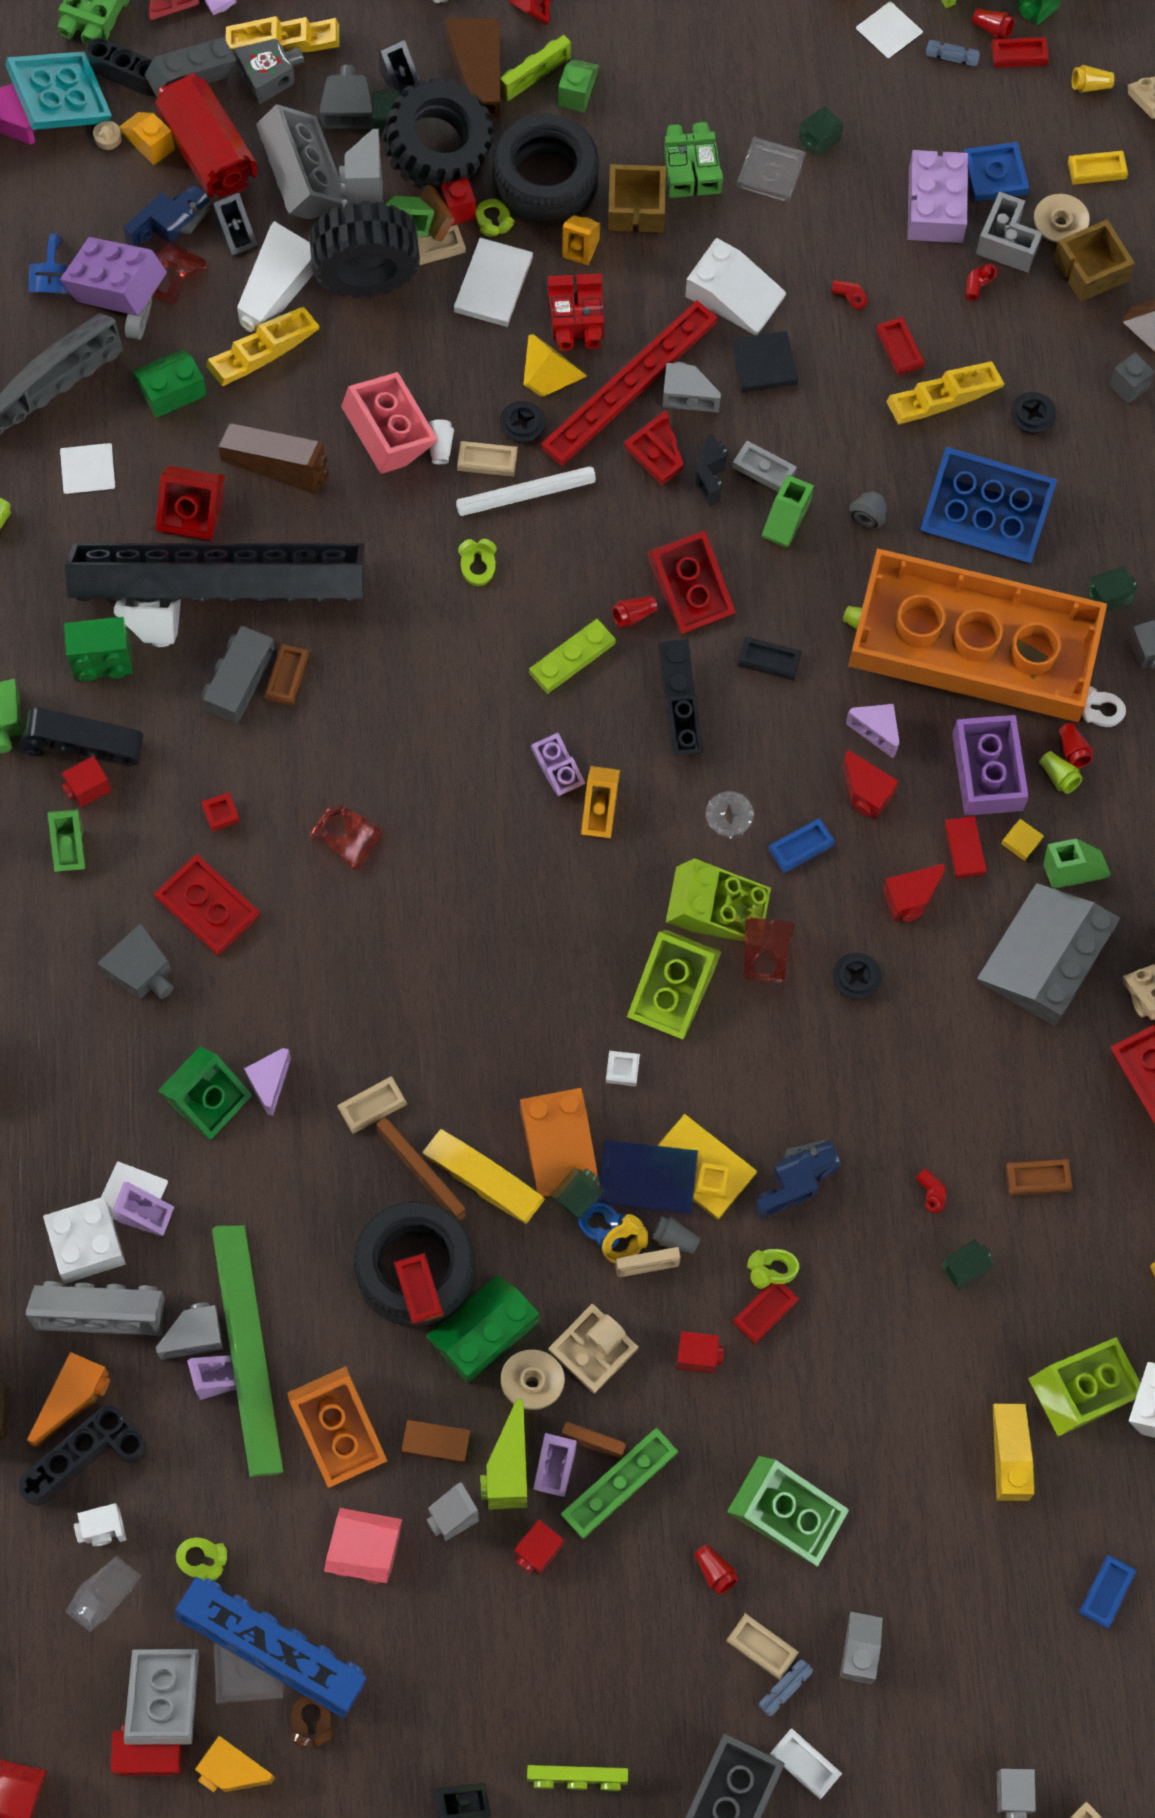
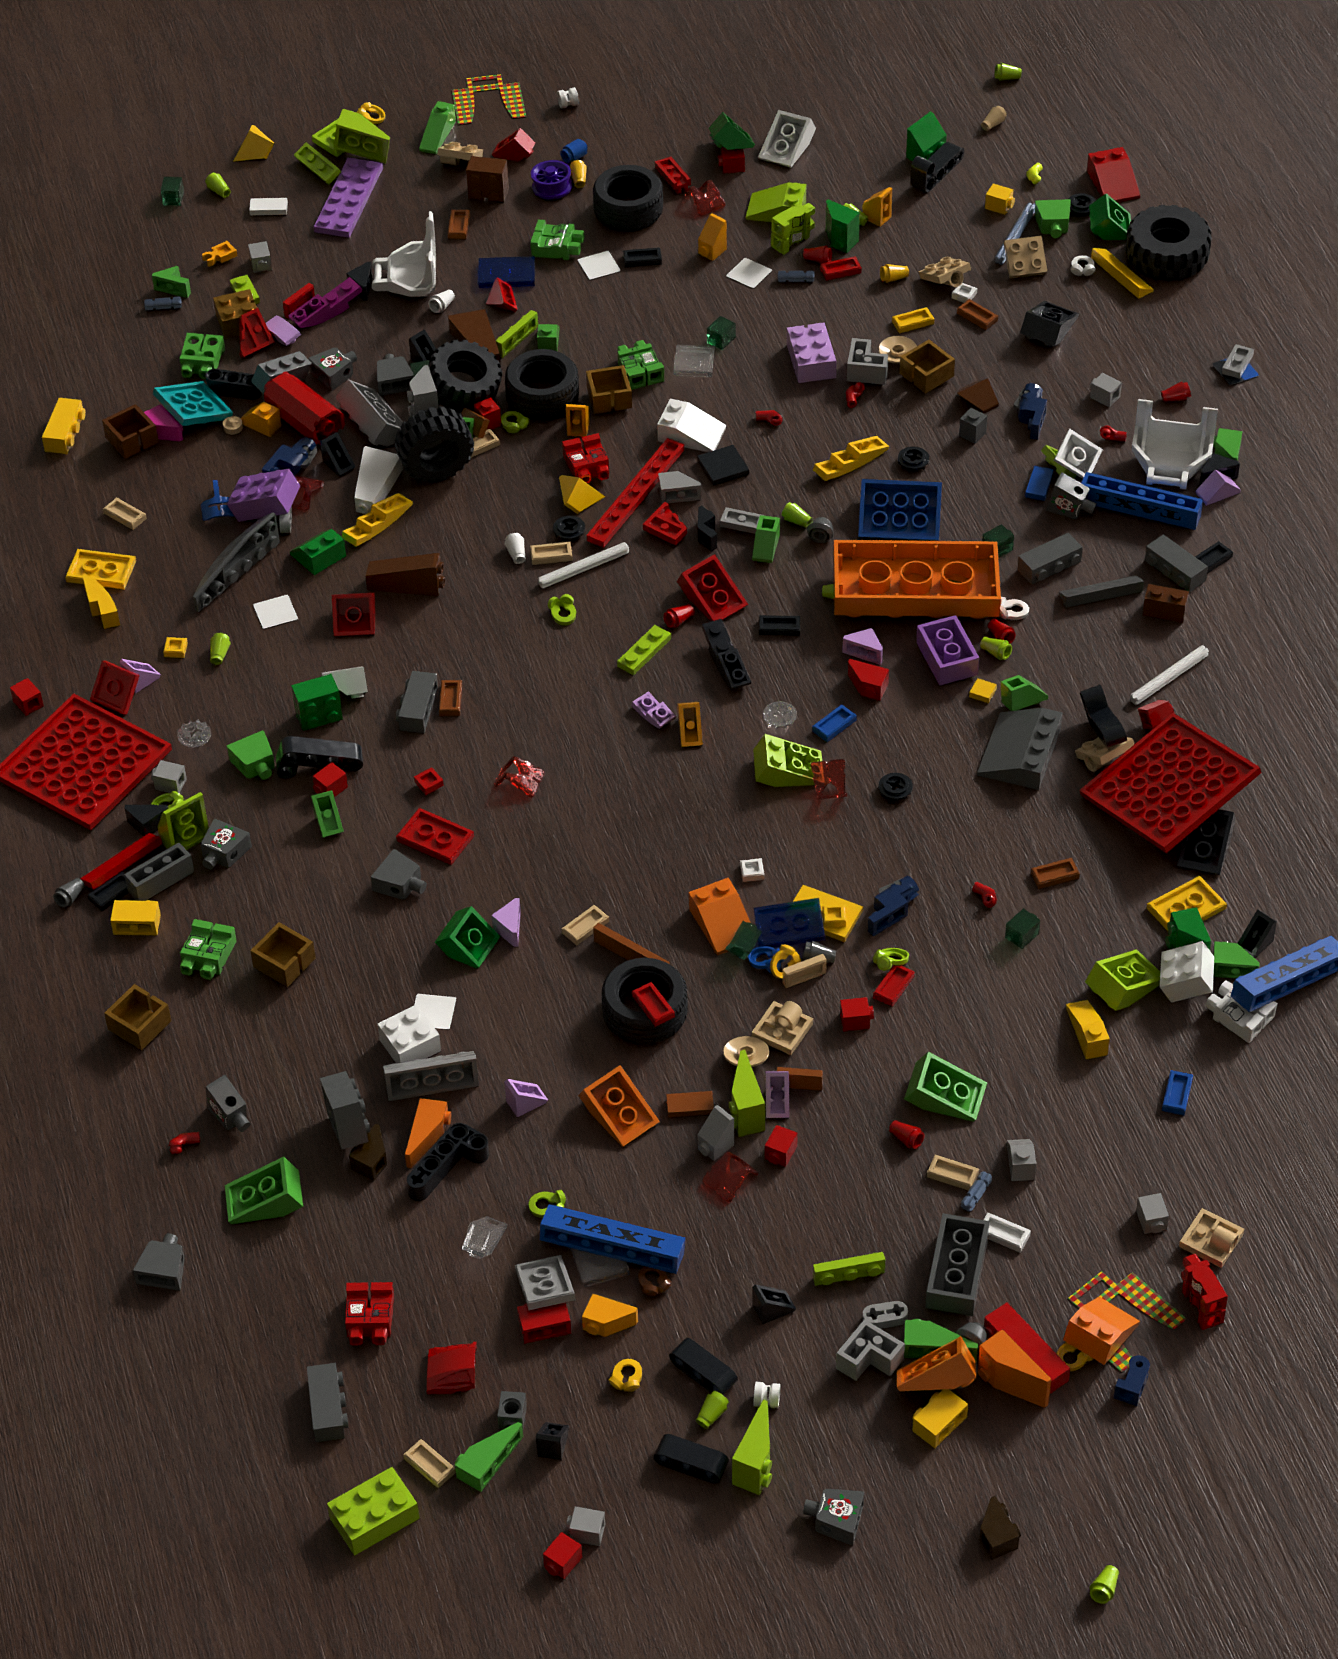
camera: 10 degrees left, 20 degrees down
(100, 1525) = (471, 1196): white brick -> none
(142, 1210) = (444, 1012): lavender slope -> none
(192, 1333) = (500, 1068): light grey slope -> none
(215, 571) = (386, 642): black brick -> none
(247, 1351) = (542, 1078): bright green tile -> none
(290, 34) = (359, 345): yellow slope -> none
(363, 1546) = (658, 1172): coral slope -> none
(388, 421) = (477, 542): coral slope -> none
(447, 1584) = (723, 1181): none -> clear red piece
(483, 1176) = (677, 945): yellow slope -> none
(484, 1328) = (705, 1032): green slope -> none
(493, 282) = (524, 456): white tile -> none
(619, 1483) = (824, 1099): bright green plate -> none
(673, 983) = (772, 812): lime slope -> none
(842, 475) = (796, 515): none -> lime cone
(900, 346) = (812, 440): red tile -> none
(912, 892) = (917, 731): red slope -> none
(965, 847) = (945, 702): red tile -> none
(996, 170) = (843, 330): blue plate -> none

